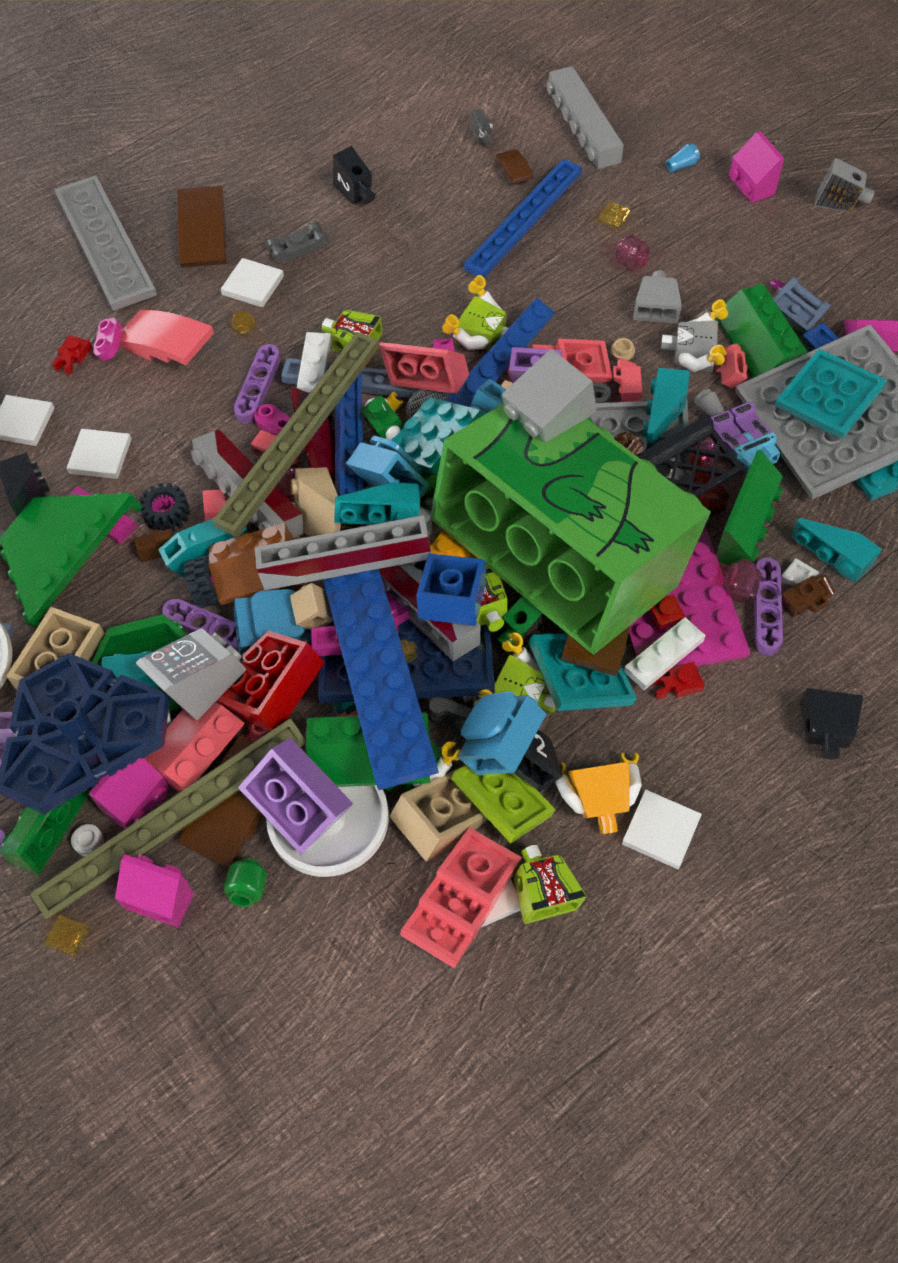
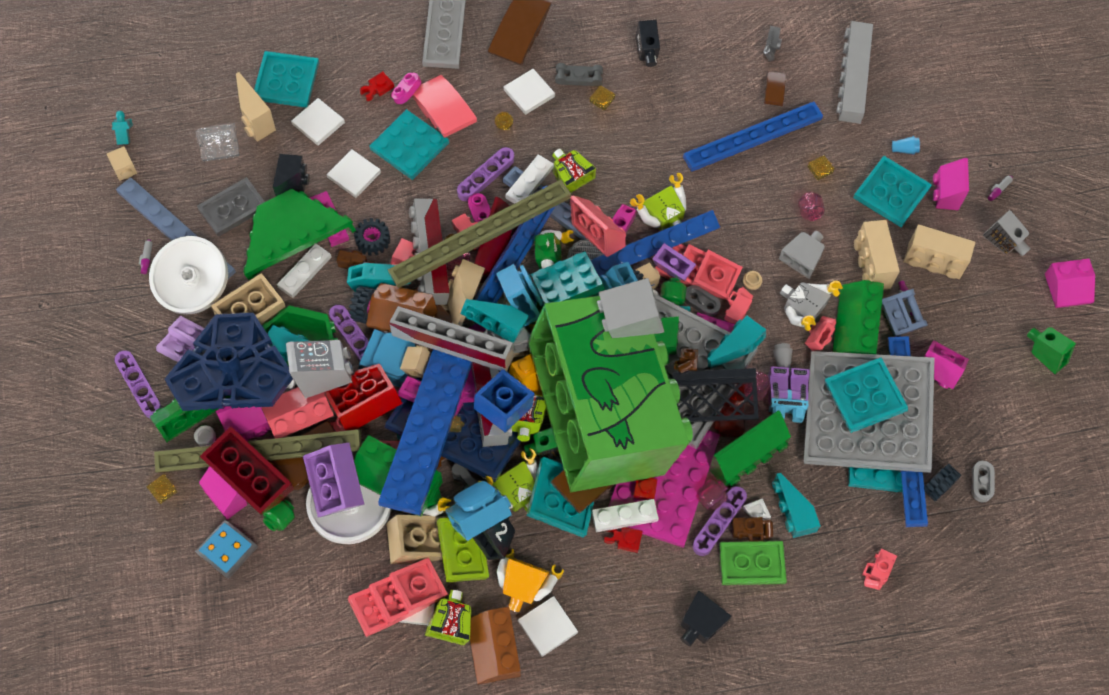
camera: 25 degrees right, 5 degrees up
(102, 585) = (304, 270): none -> white plate
(147, 394) = (409, 144): none -> teal plate
(175, 843) = (247, 471): none -> dark red slope
(200, 963) = (226, 549): none -> dark azure slope
(338, 252) = (602, 98): none -> clear yellow plate
(619, 887) = (494, 646): none -> dark orange slope
(701, 204) = (892, 191): none -> teal plate
(733, 259) = (876, 253): none -> tan brick
(792, 231) = (939, 252): none -> tan brick
(798, 158) = (998, 188): none -> piece
(834, 631) = (752, 563): none -> bright green tile

